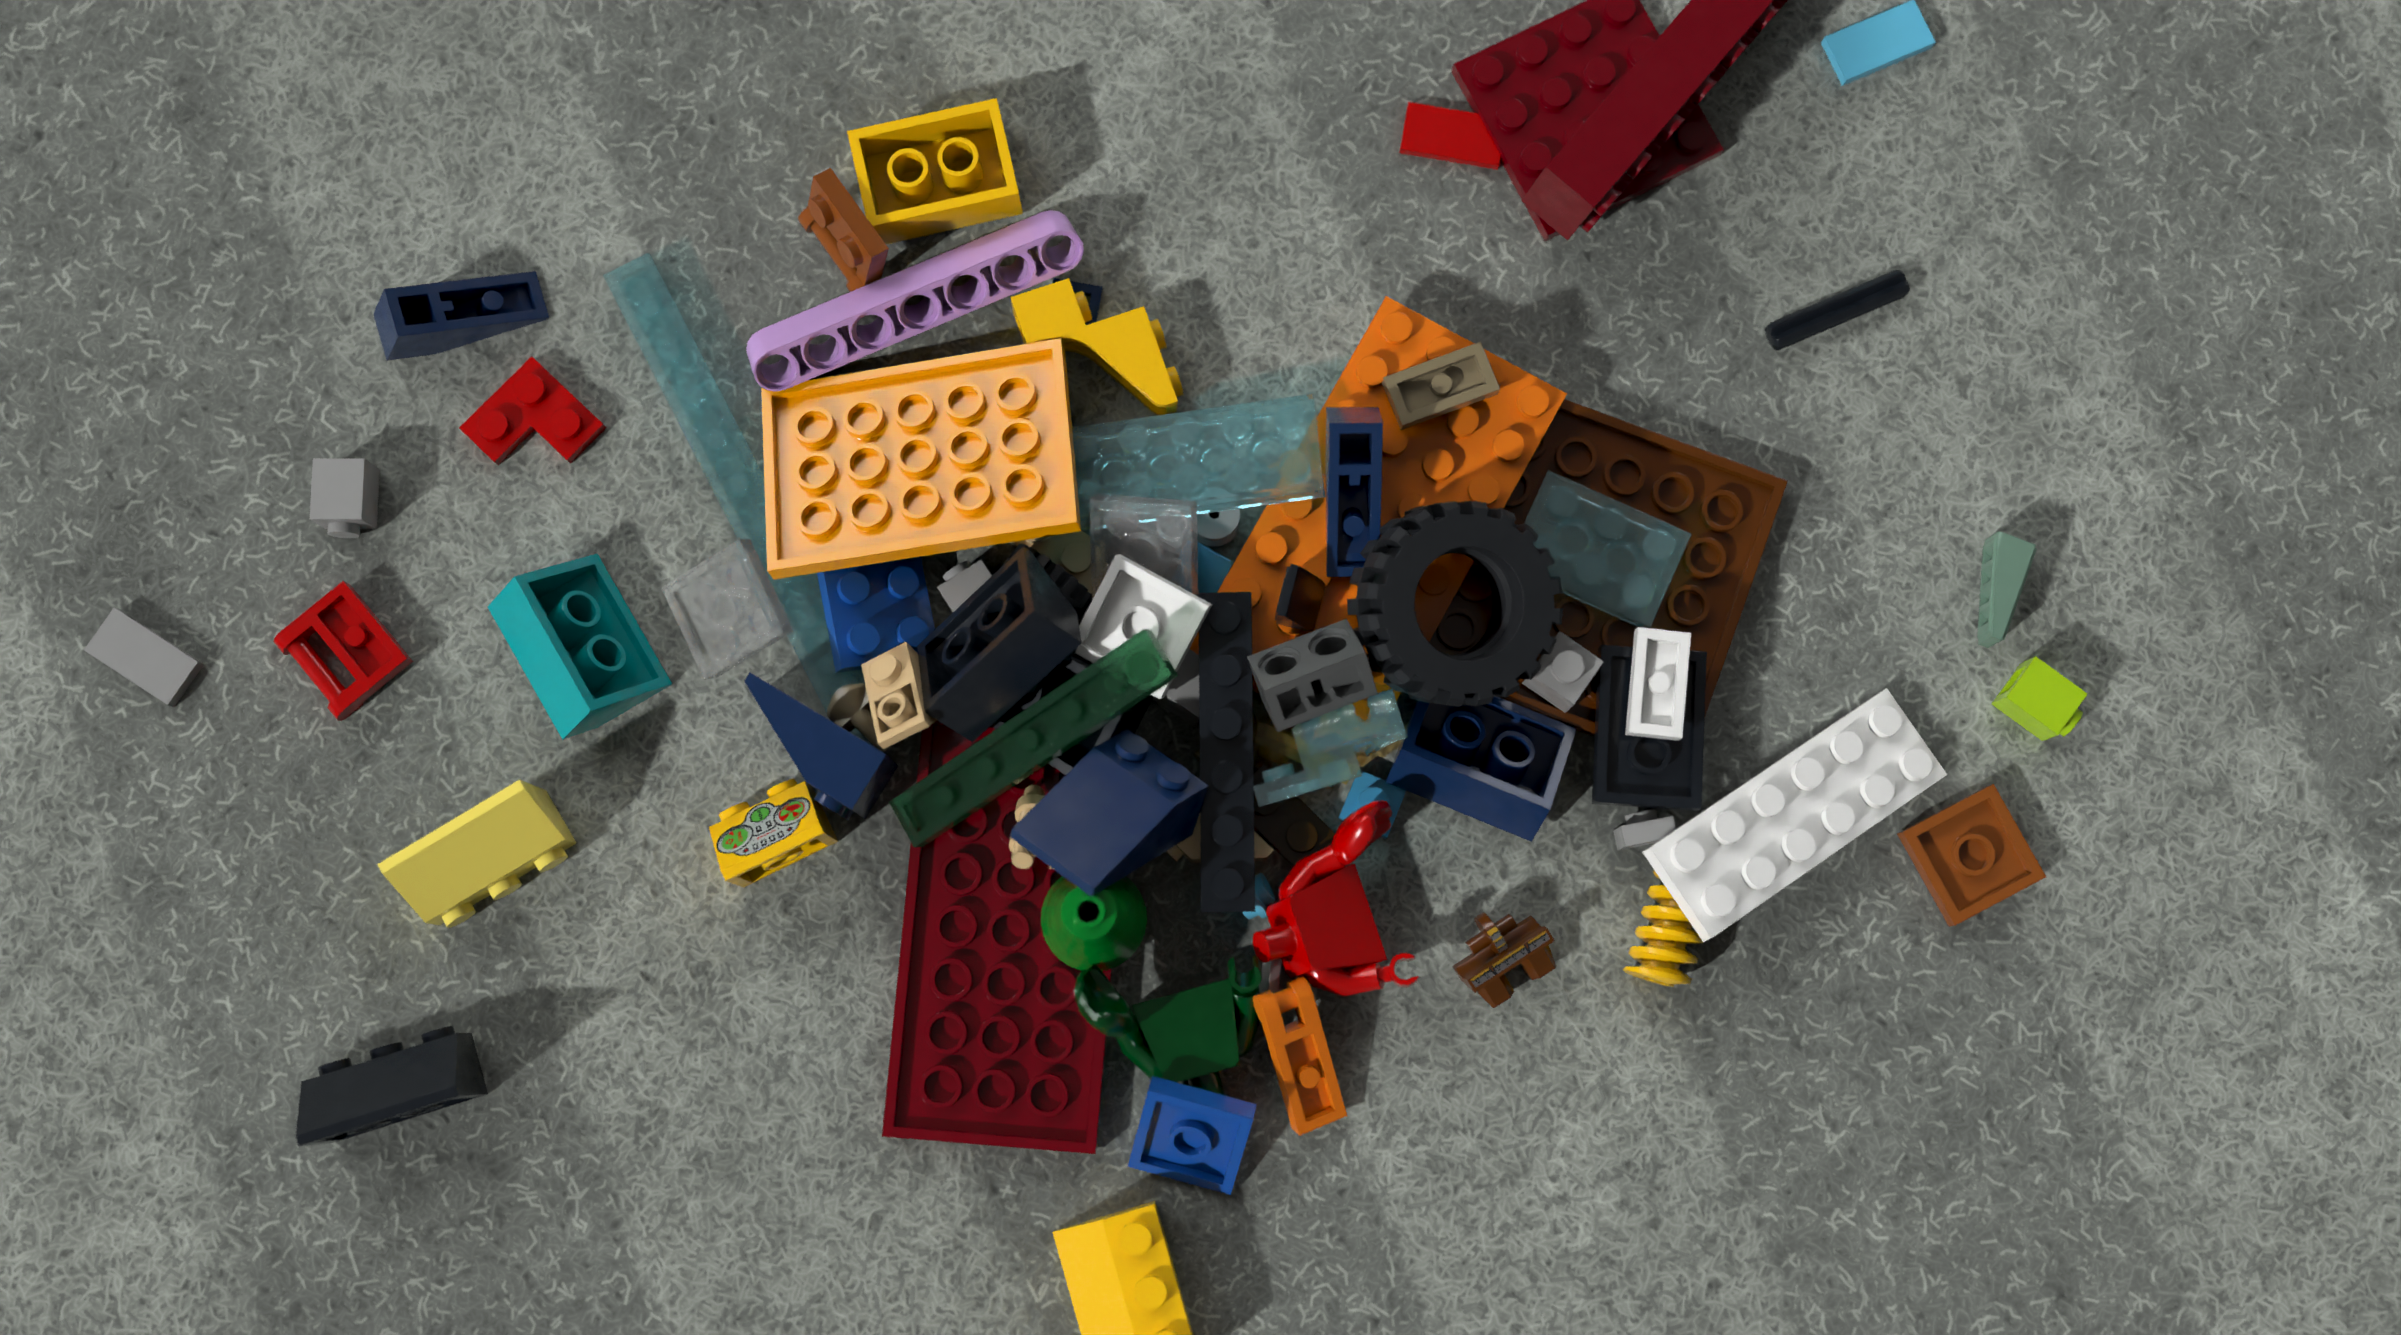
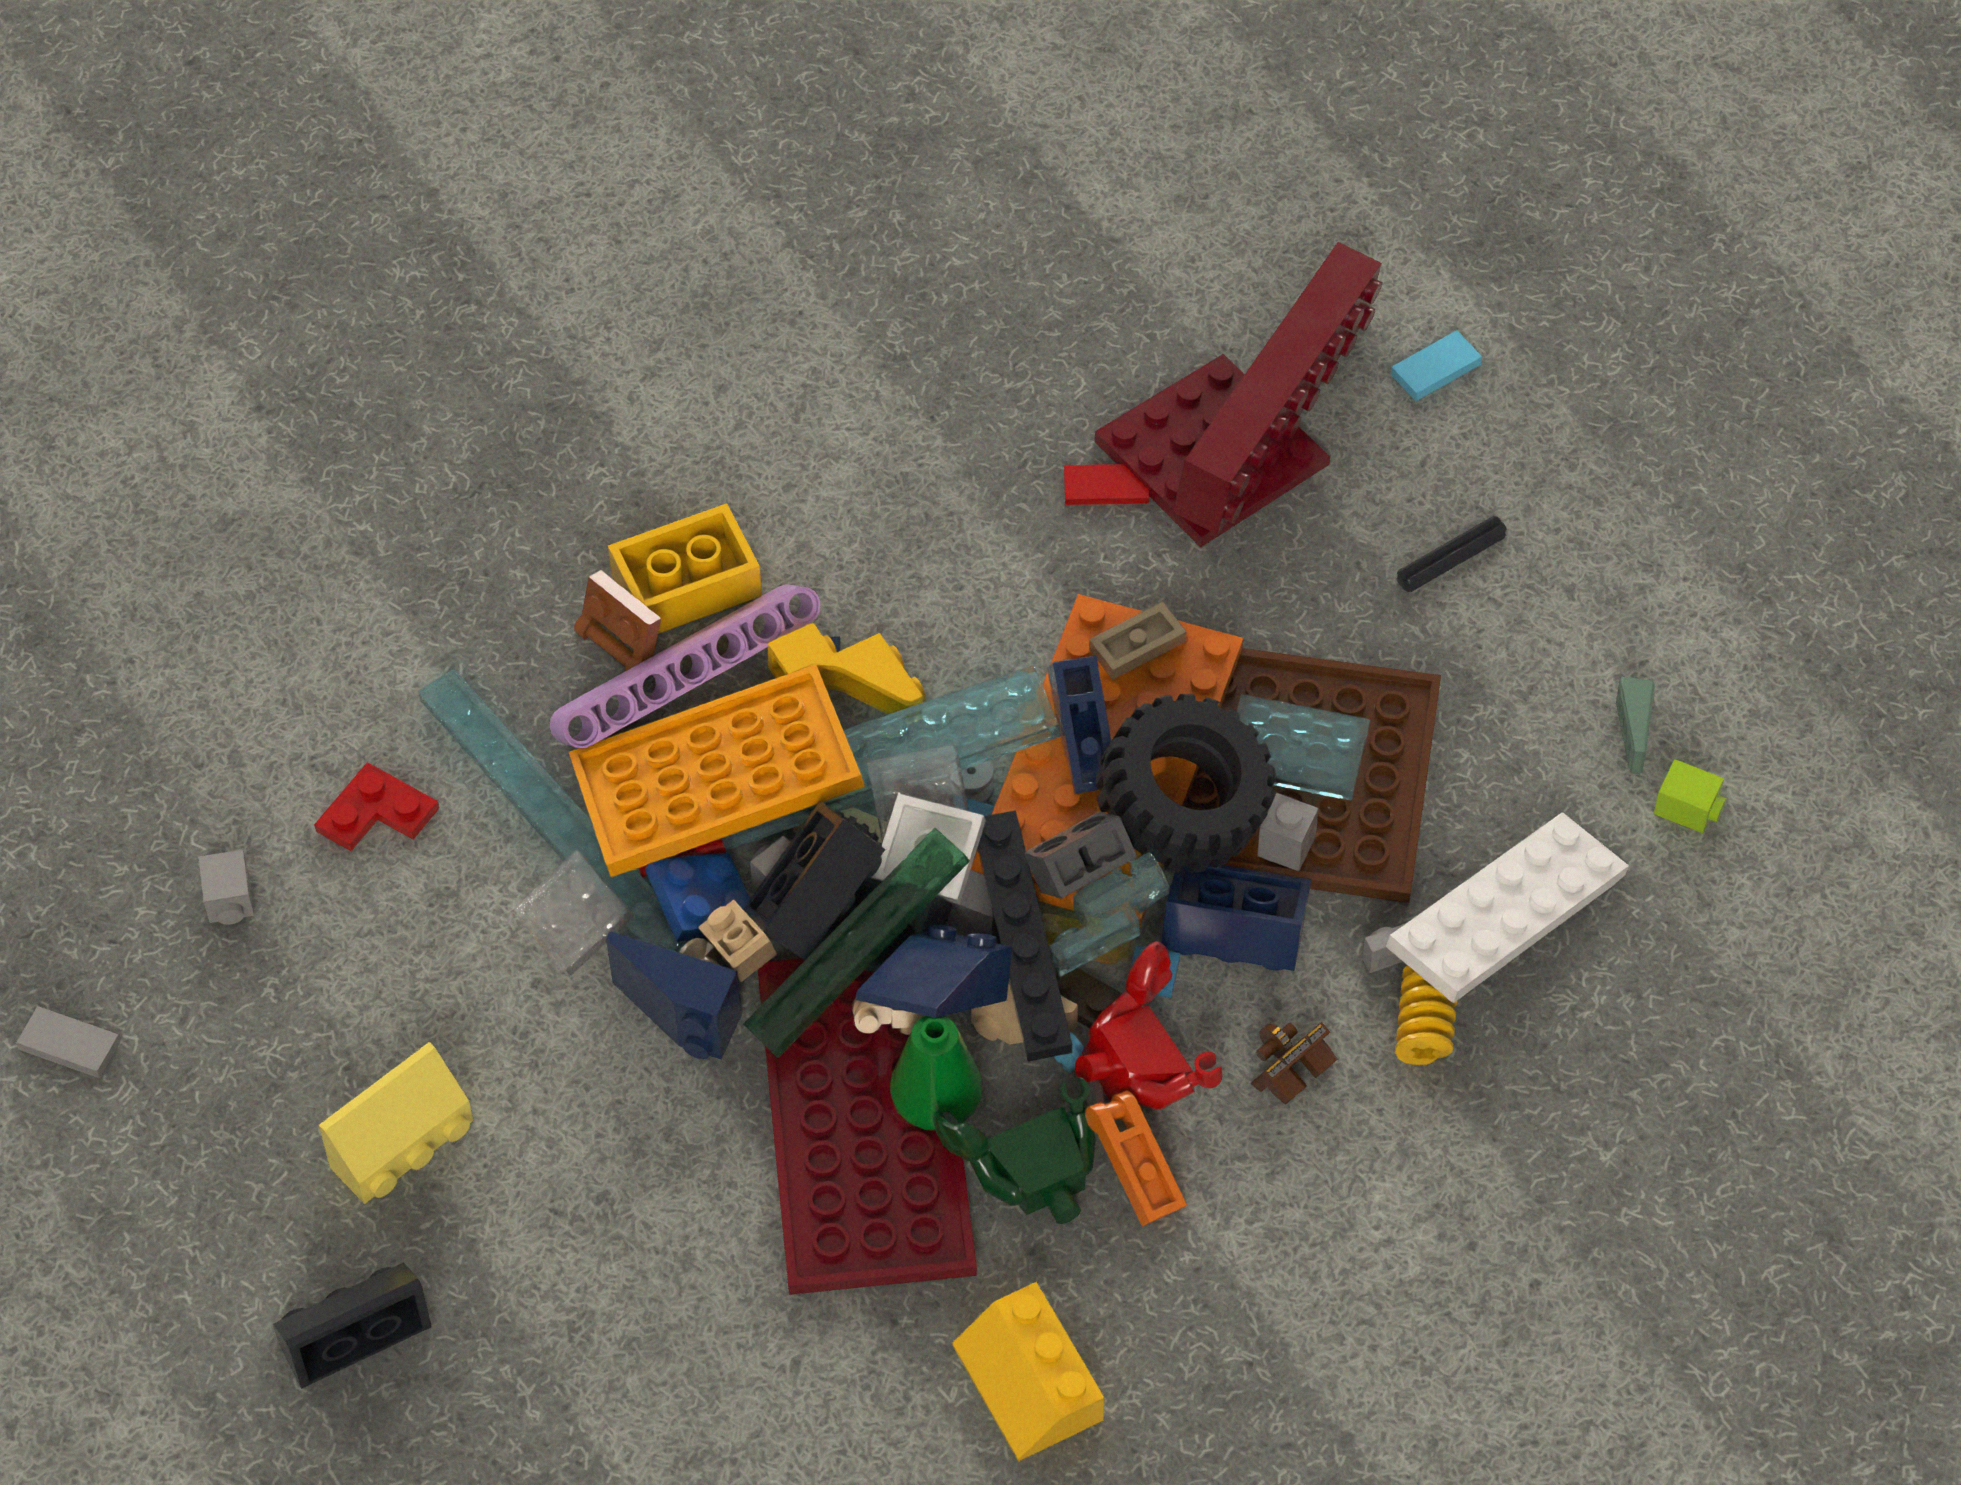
camera: 10 degrees left, 25 degrees down
(355, 639) = (250, 992): red plate -> none
(456, 313) = (291, 740): dark blue slope -> none
(578, 644) = (446, 964): teal slope -> none
(770, 834) = (648, 1073): yellow slope -> none
(1192, 1135) = (1056, 1233): blue plate -> none
(1299, 599) = (1056, 808): black slope -> none
(1646, 769) = (1370, 863): black plate -> none
(1658, 683) = (1367, 819): white plate -> none
(1971, 855) = (1664, 920): dark orange plate -> none

